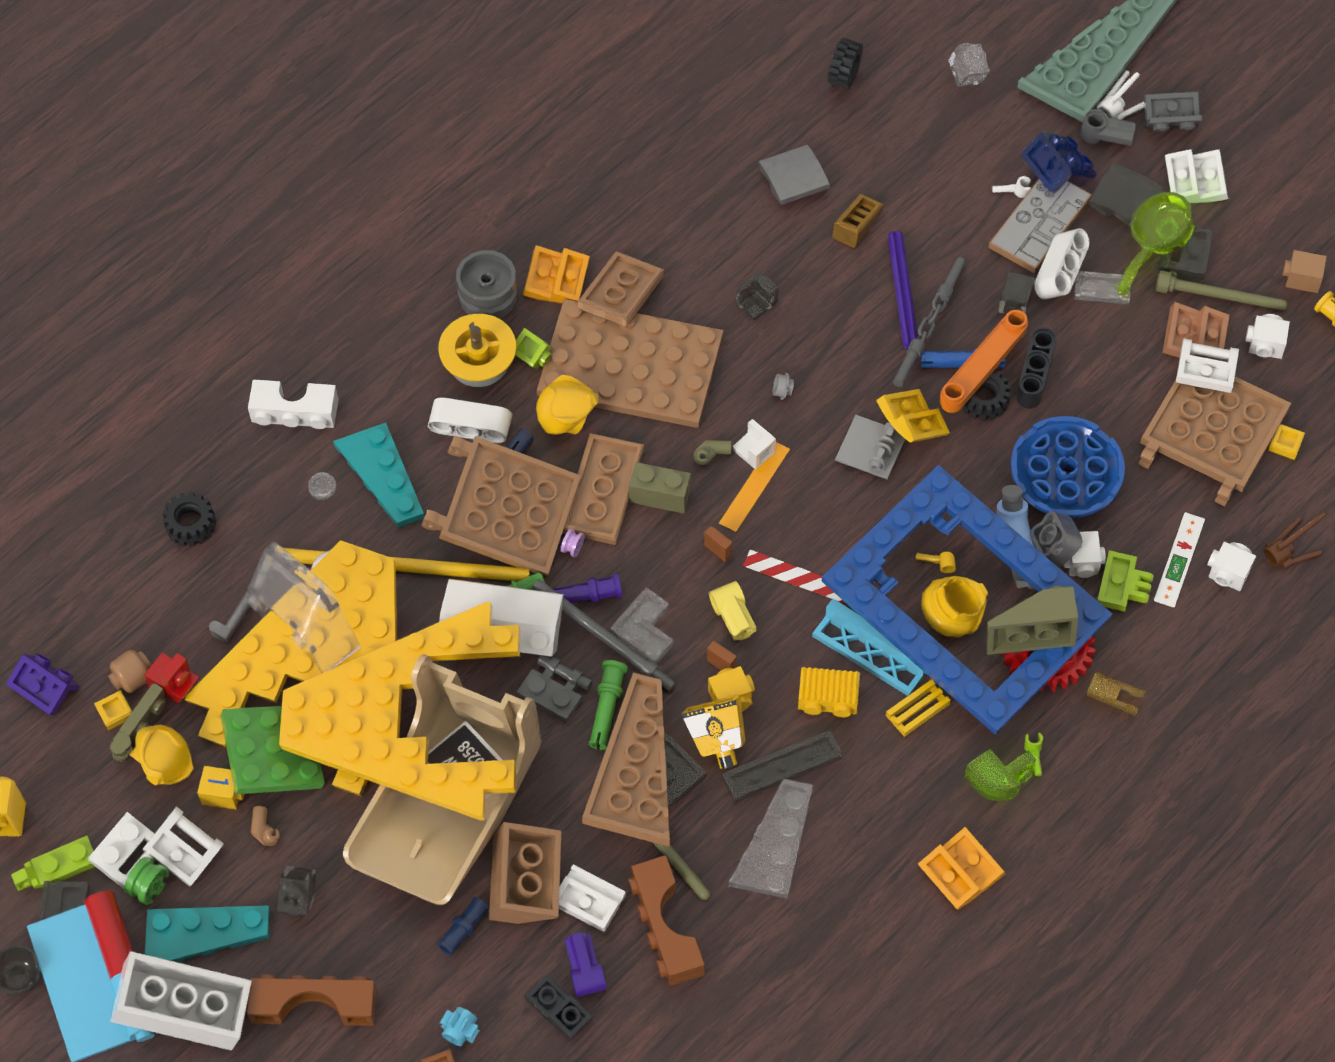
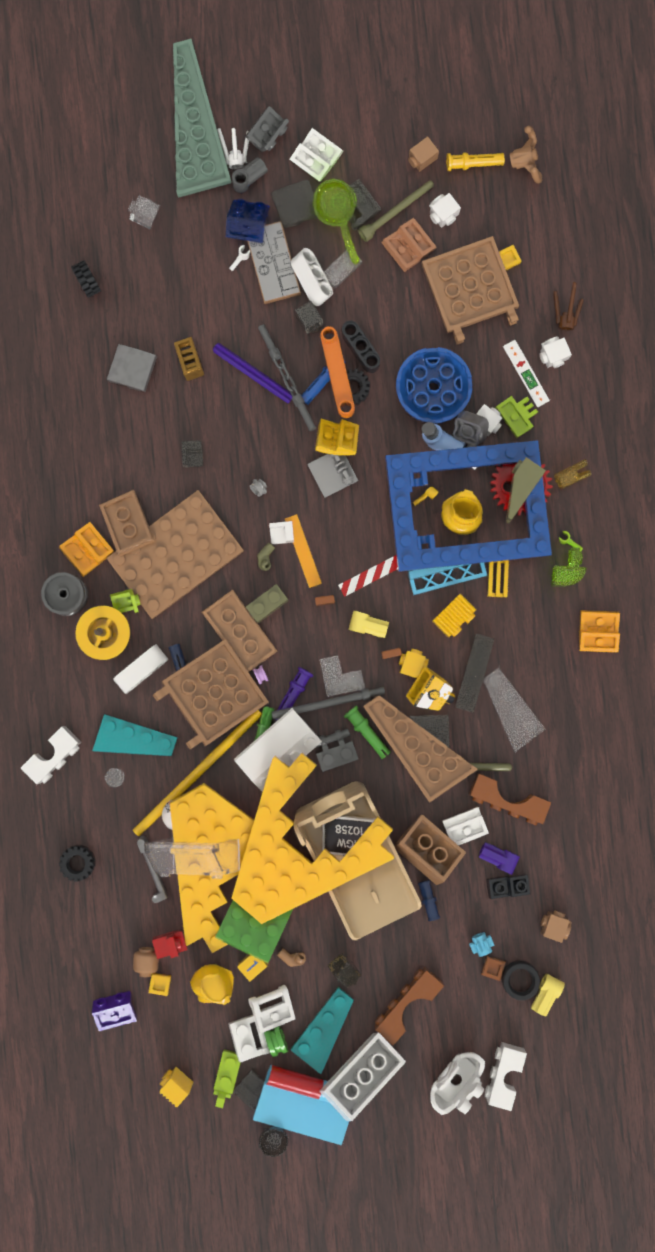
camera: 50 degrees left, 25 degrees up
(149, 705) = (181, 981): olive hinge -> none
(565, 405) = (178, 614): yellow helmet -> none
(1204, 371) = (442, 263): white plate -> none

